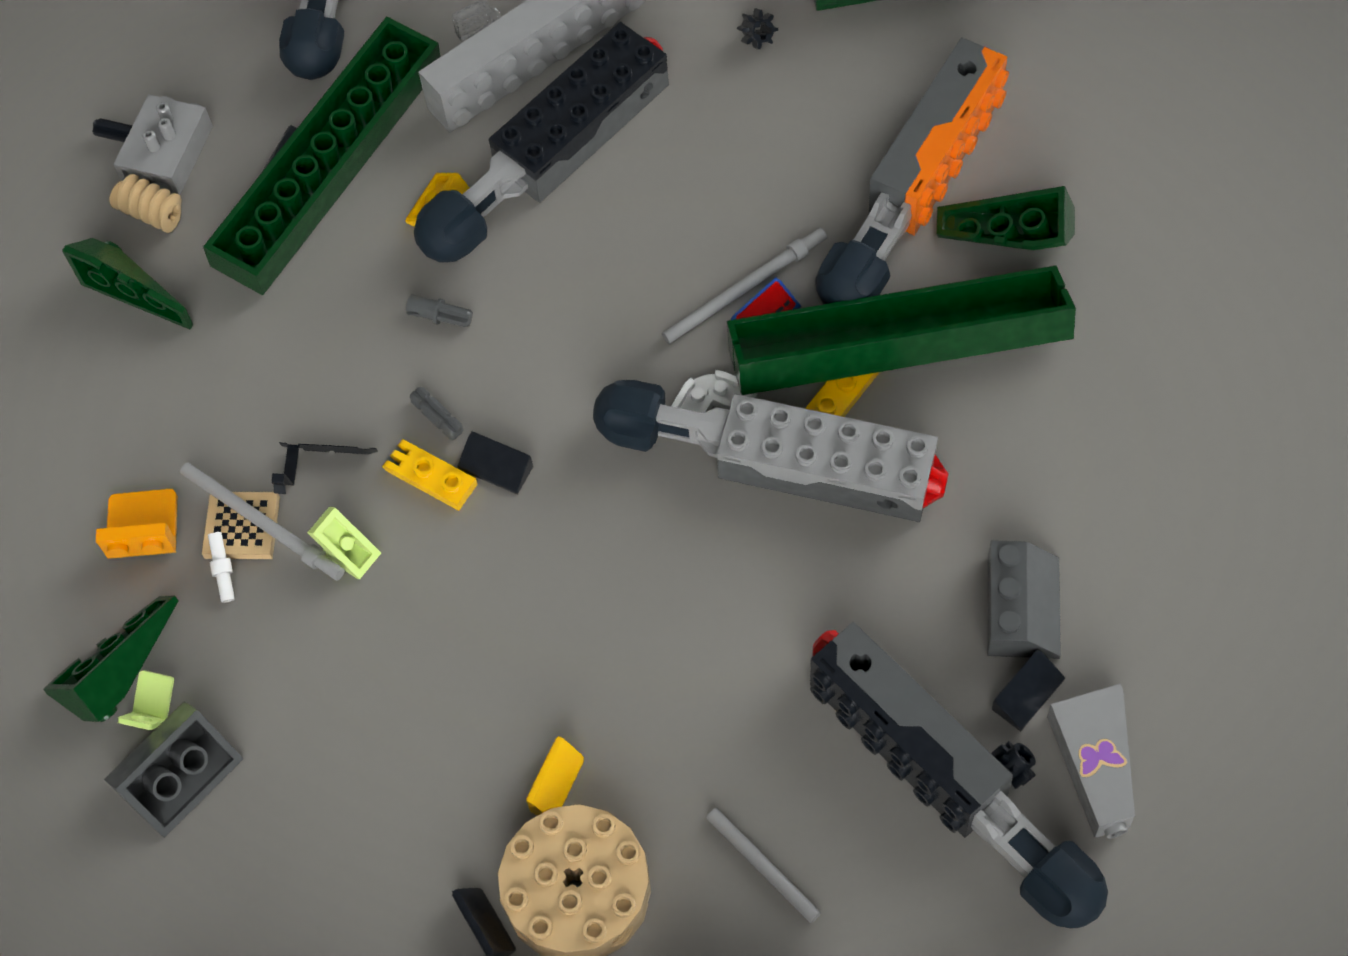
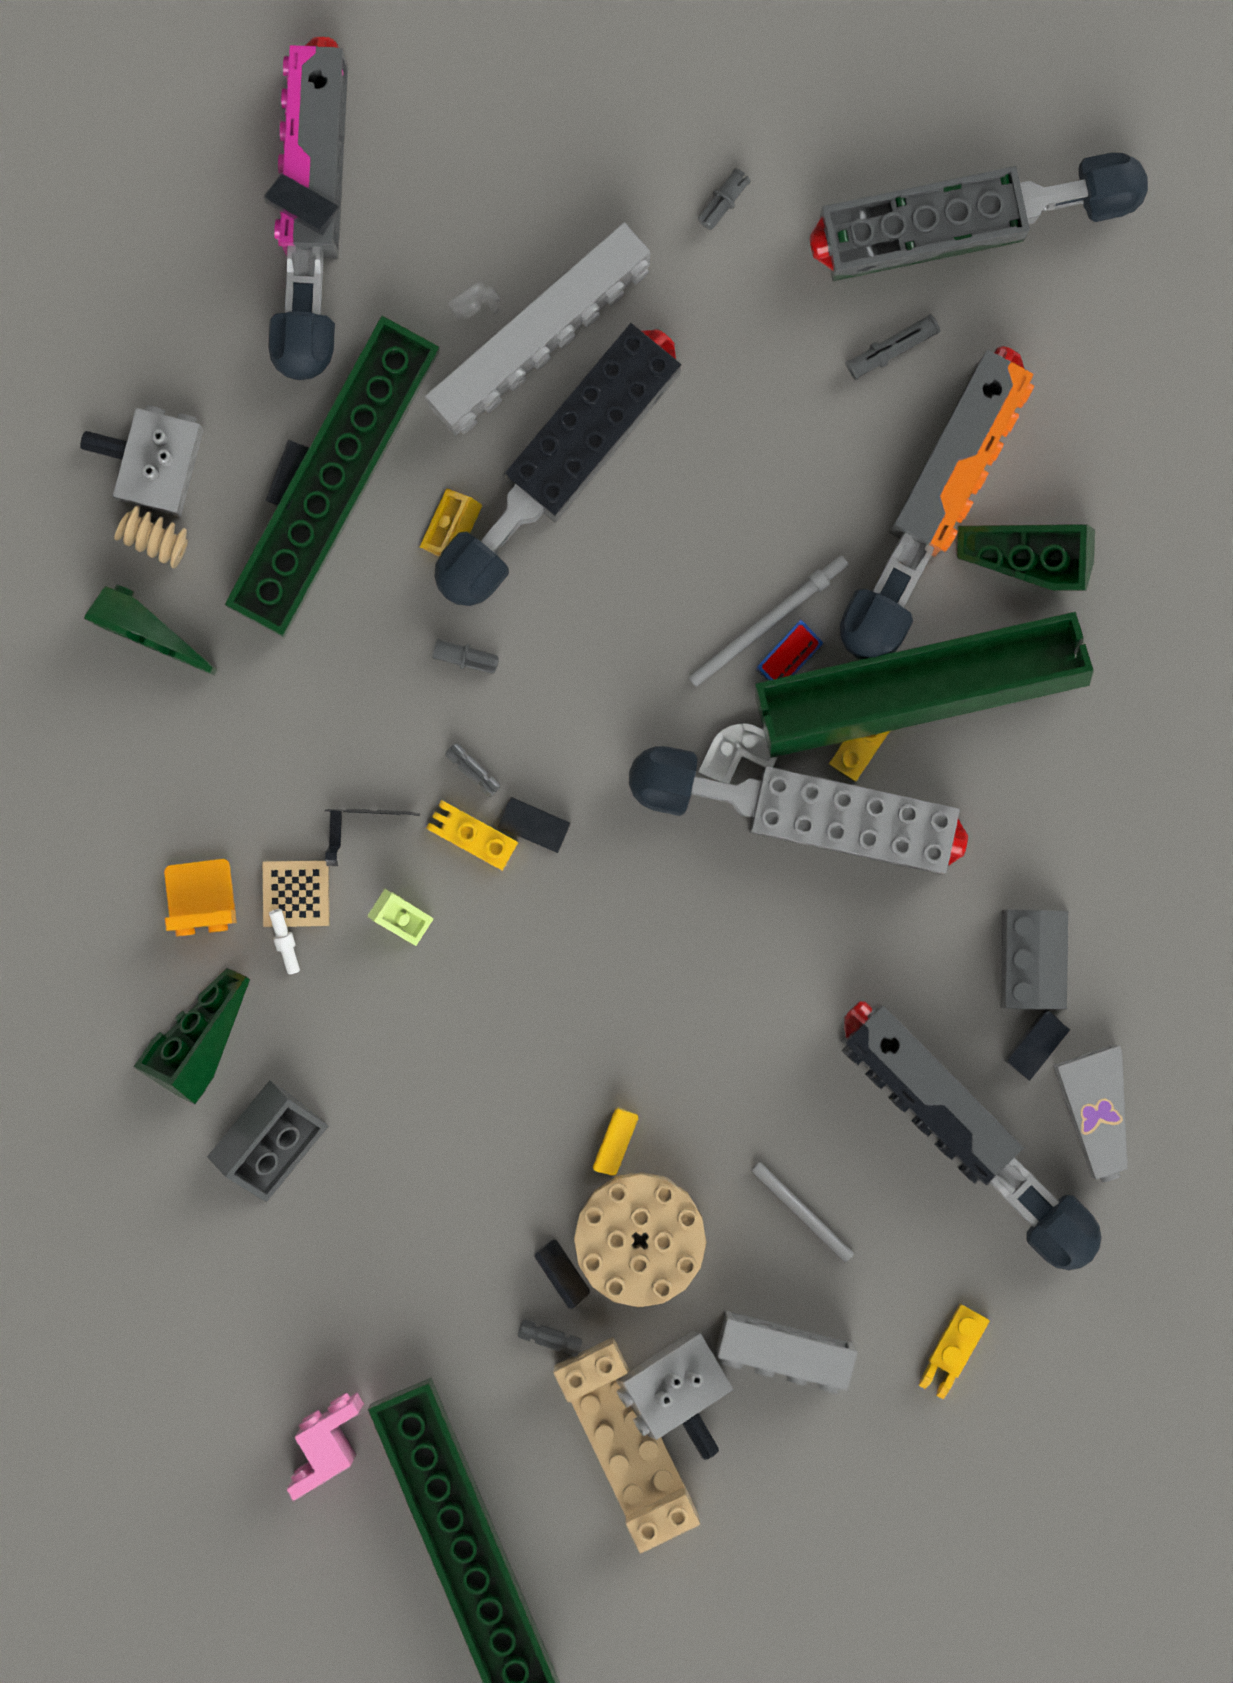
camera: 10 degrees left, 25 degrees up
(150, 701) = (236, 1080): yellowish green bracket -> none
(310, 554) = (370, 929): light grey bar -> none
(754, 21) = (772, 312): black gear -> none
(862, 63) = (881, 353): none -> dark grey pin
(1017, 760) = (1022, 1119): black gear -> none

